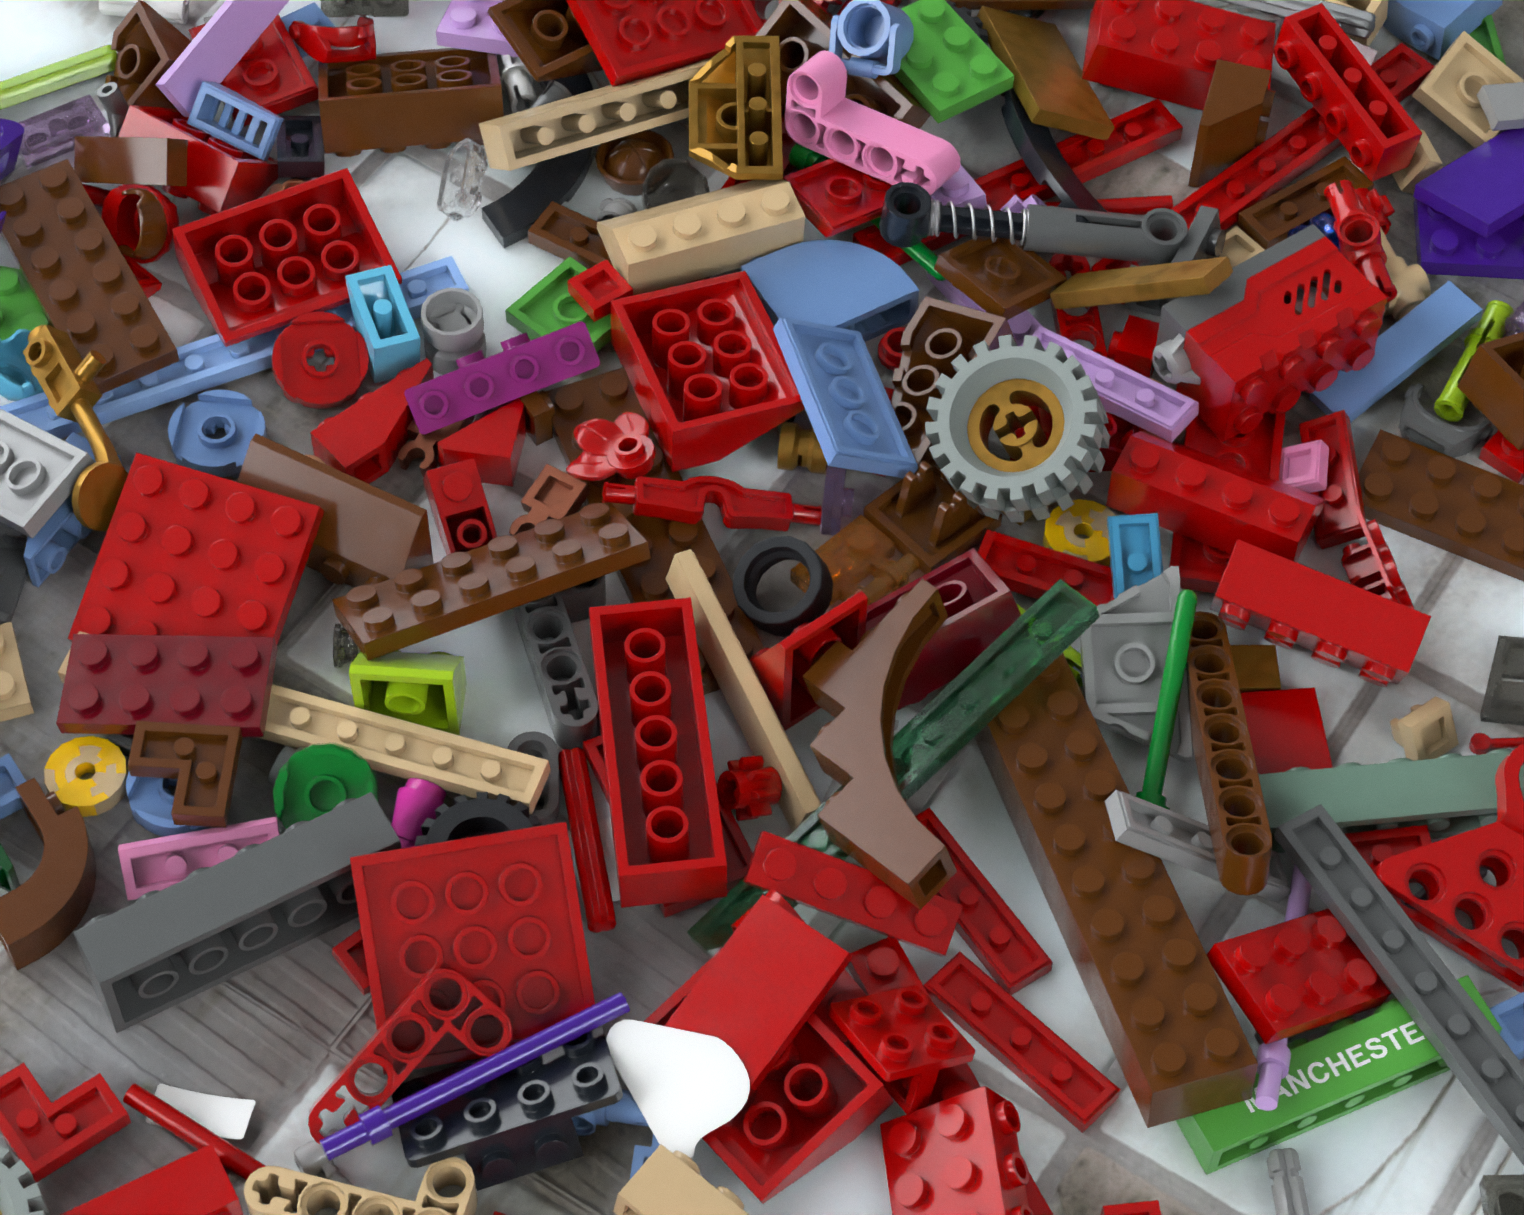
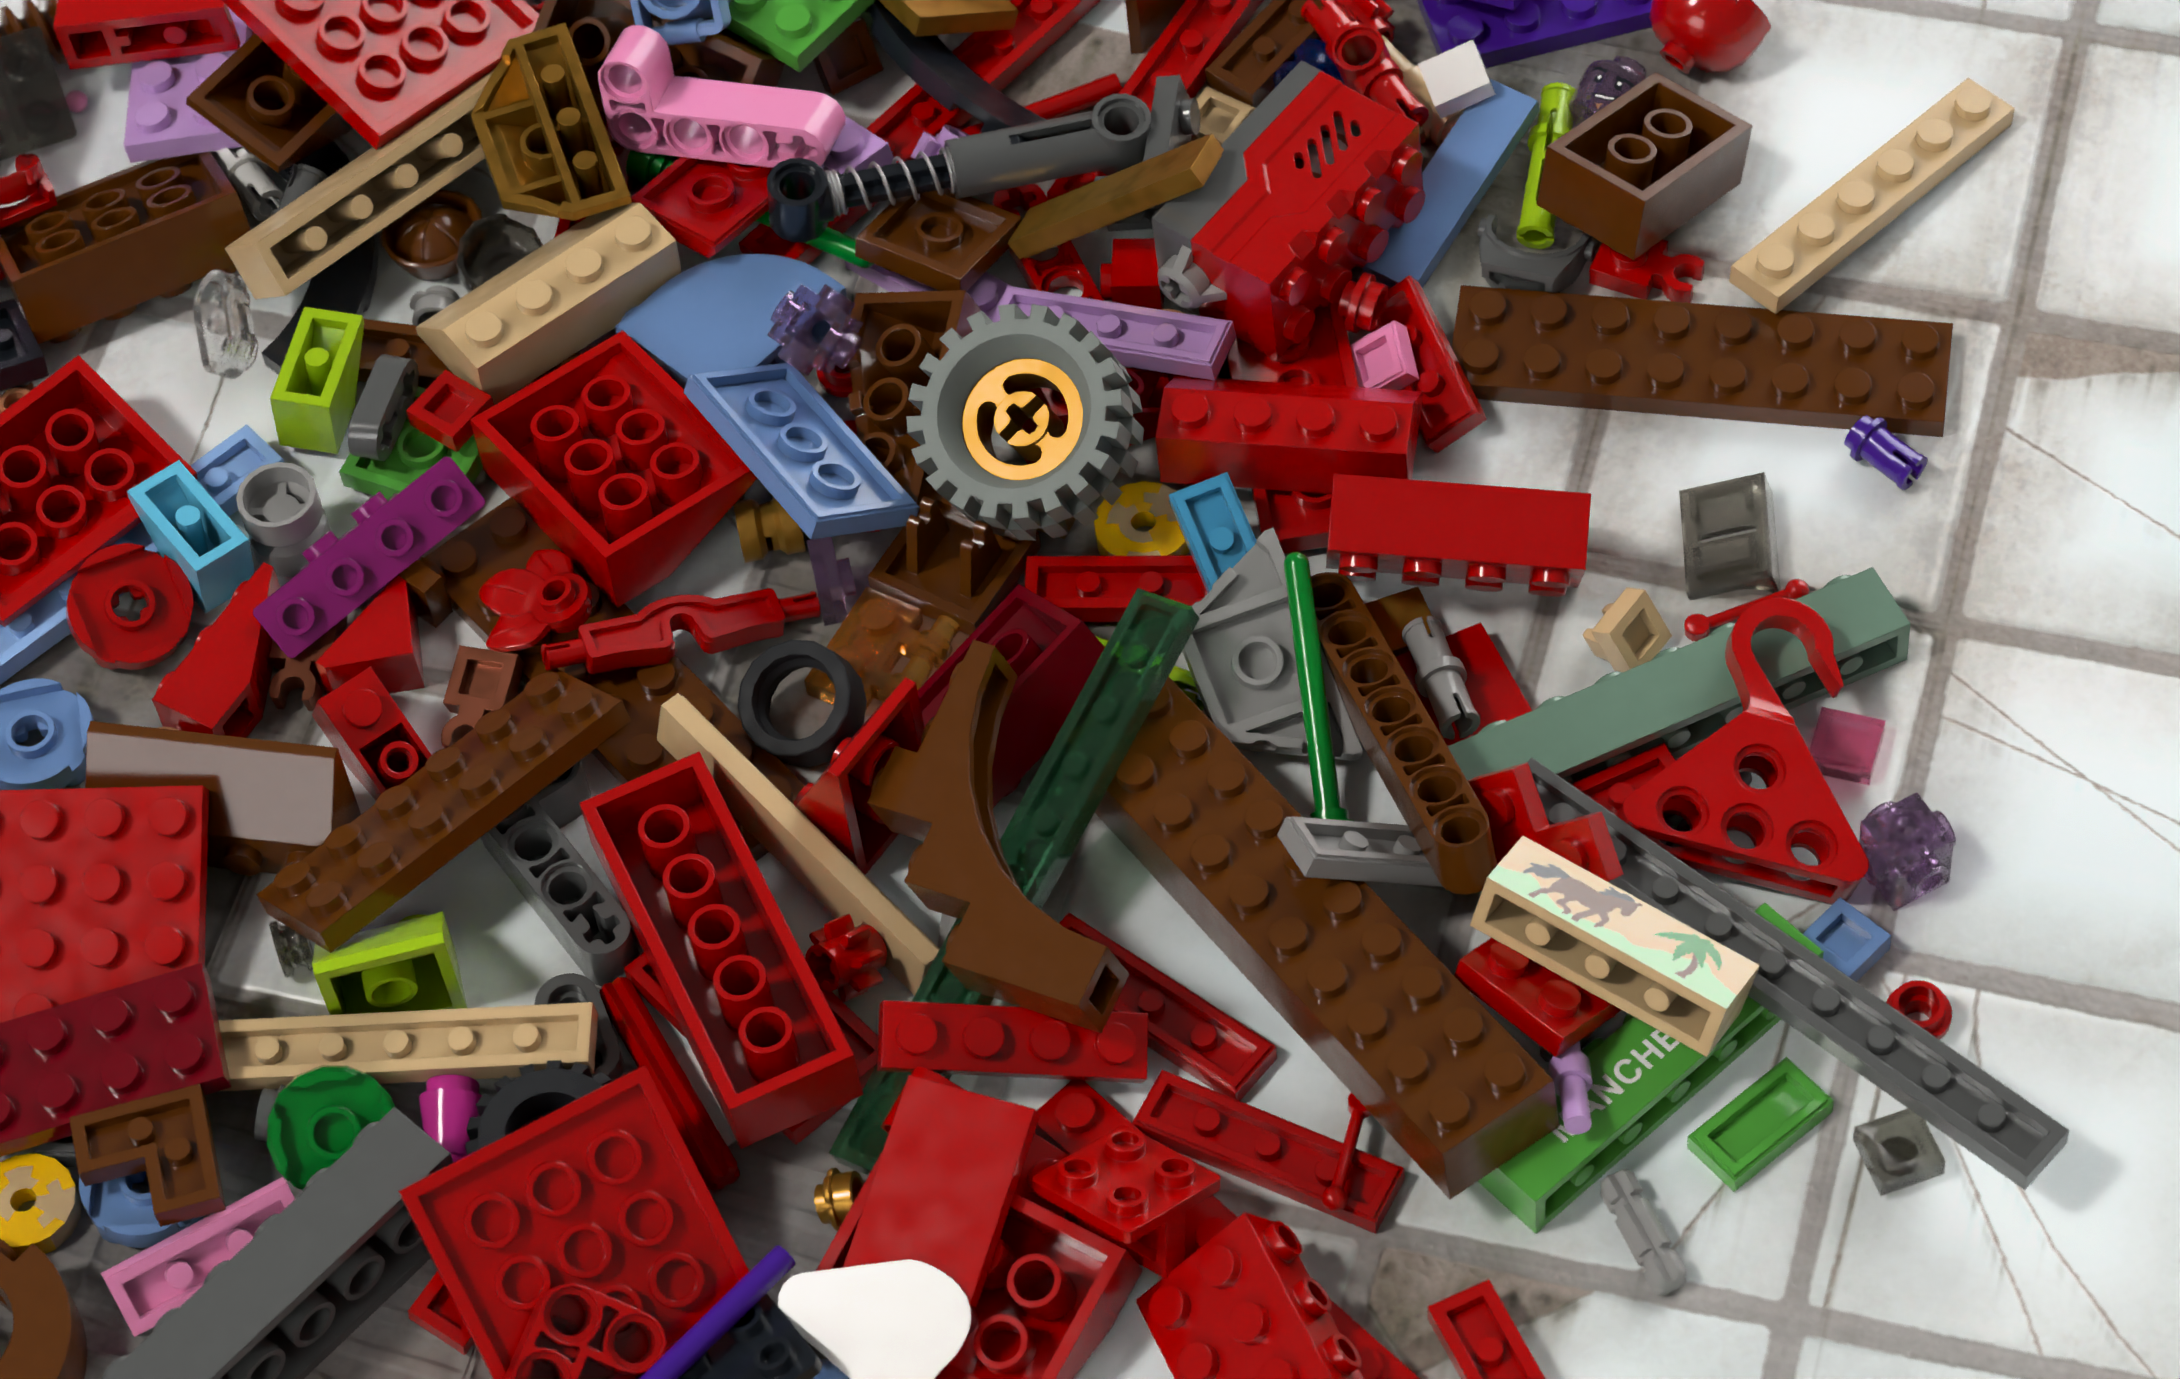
camera: 10 degrees left, 0 degrees up
(513, 240) = (318, 381): none -> lime slope
(550, 273) = (383, 407): none -> dark grey beam
(681, 966) = (837, 1196): none -> pearl gold plate
(871, 304) = (794, 324): none -> clear purple brick
(978, 125) = (848, 59): none -> reddish brown tile
(1058, 1095) = (1334, 1197): none -> red hinge
(1270, 720) = (1441, 677): none -> light grey pin
(1299, 881) = (1517, 811): none -> red plate
(1301, 419) = (1363, 303): none -> red plate
(1339, 972) = (1614, 945): none -> tan brick
(1373, 564) = (1504, 454): red hinge -> none
(1409, 1147) = (1760, 1124): none -> bright green tile
(1426, 275) = (1456, 79): none -> white tile

